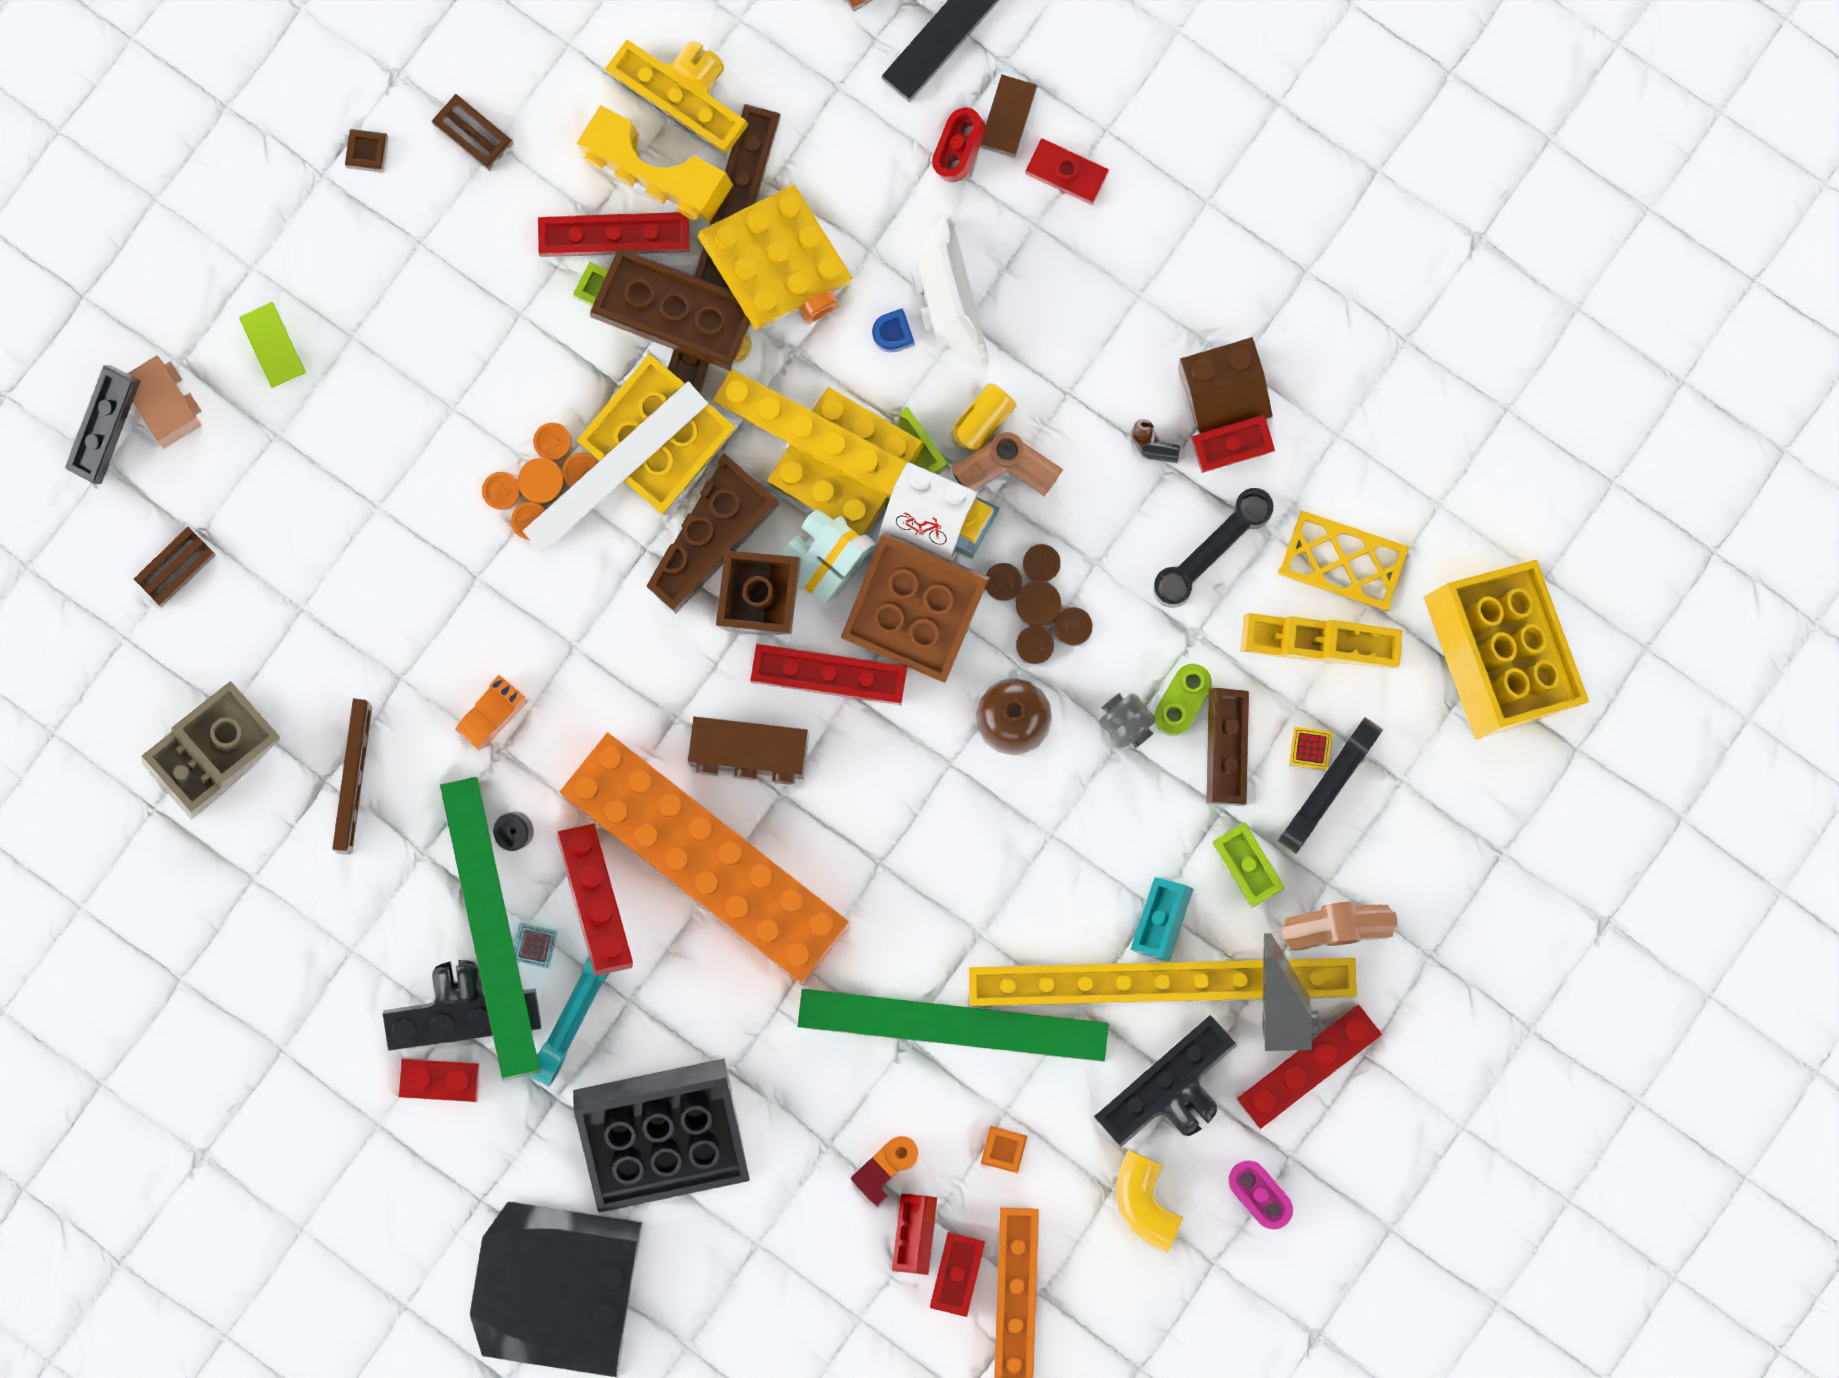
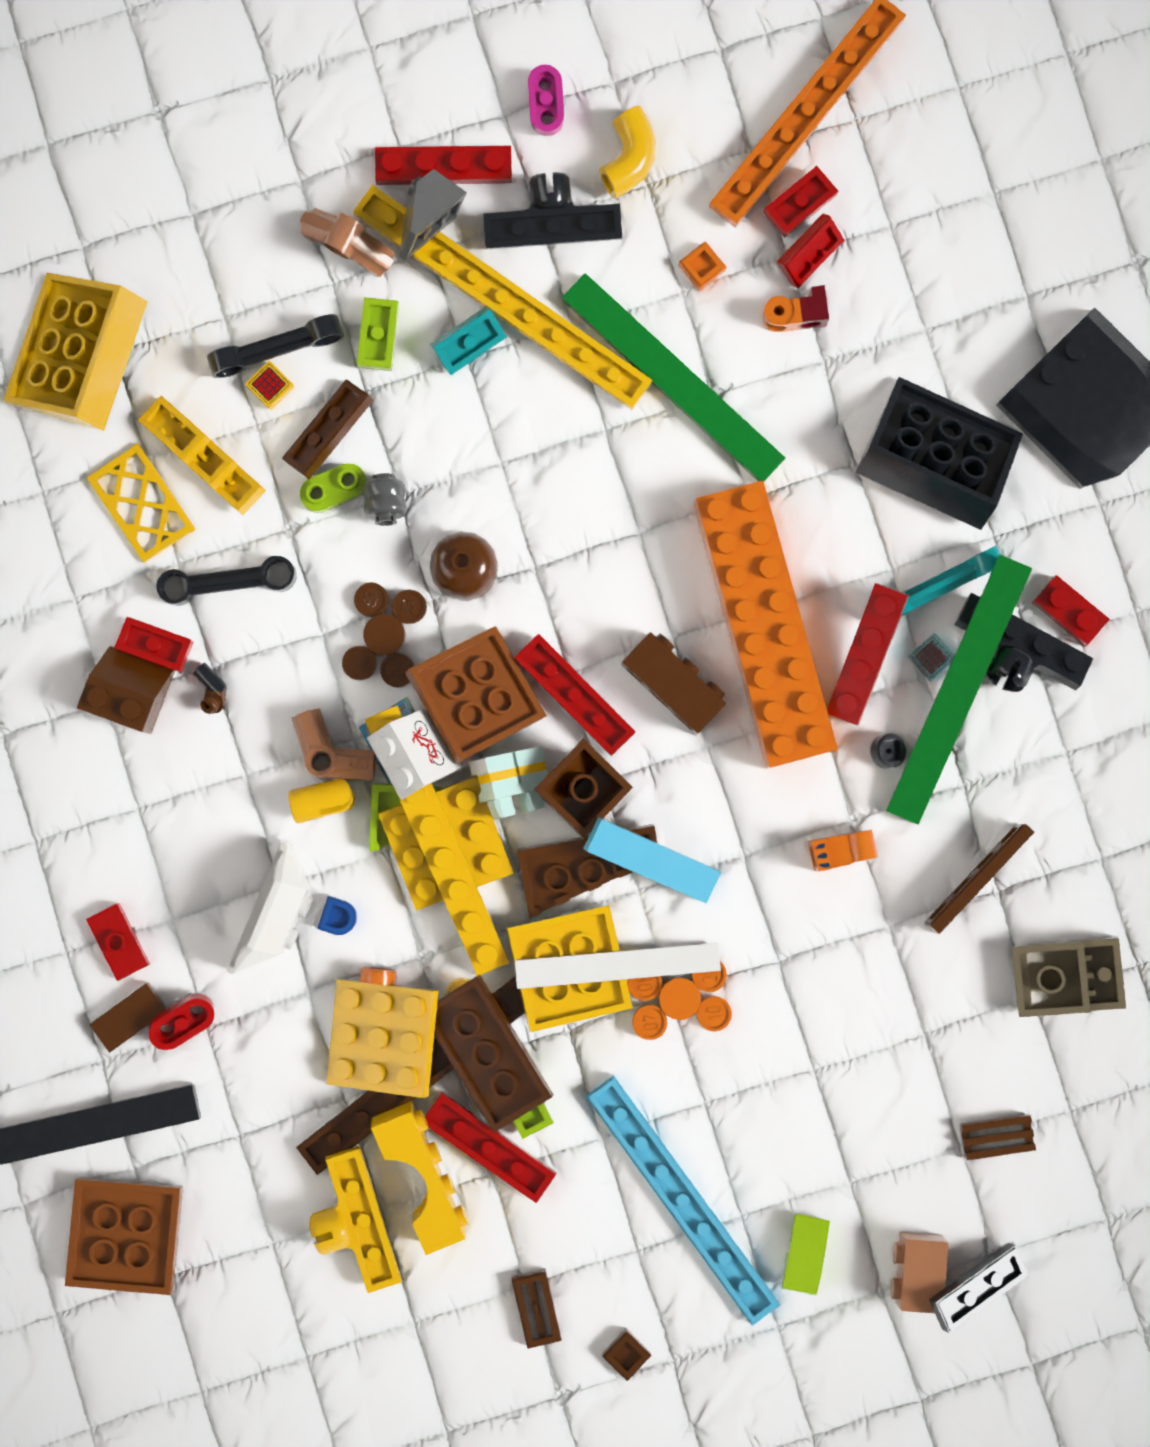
camera: 150 degrees left, 5 degrees up
(413, 313) = (682, 1200): none -> medium azure tile
(652, 577) = (652, 860): none -> medium azure tile

